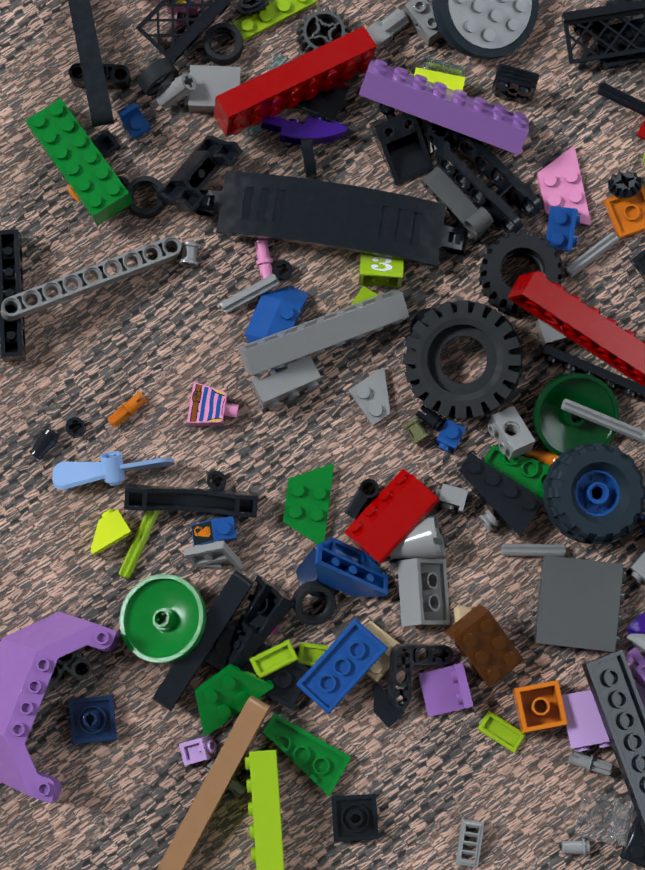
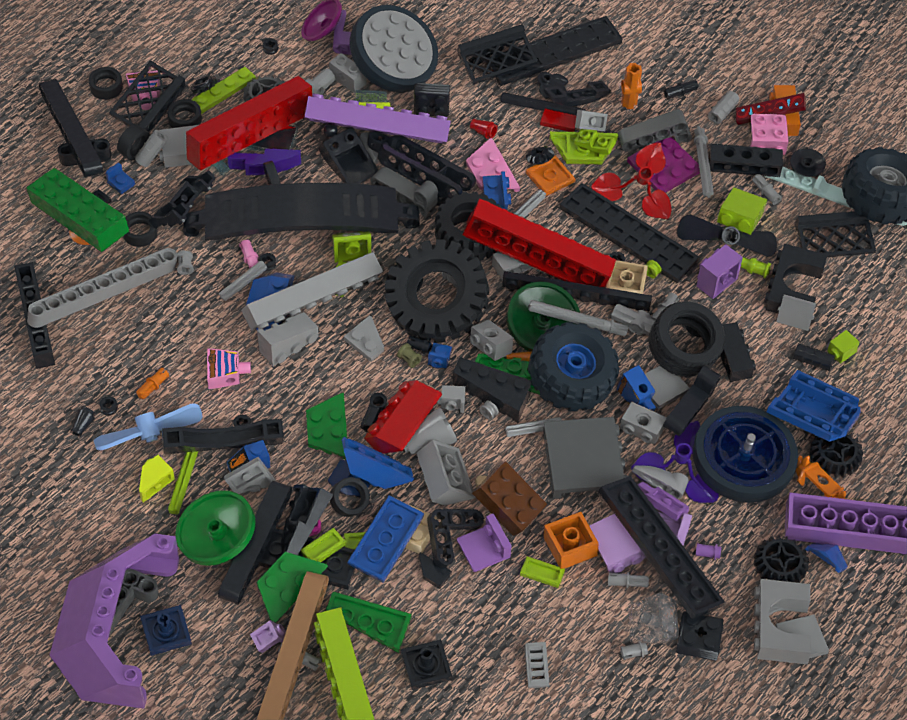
camera: 10 degrees left, 25 degrees down
(569, 131) = (485, 128): none -> red cone

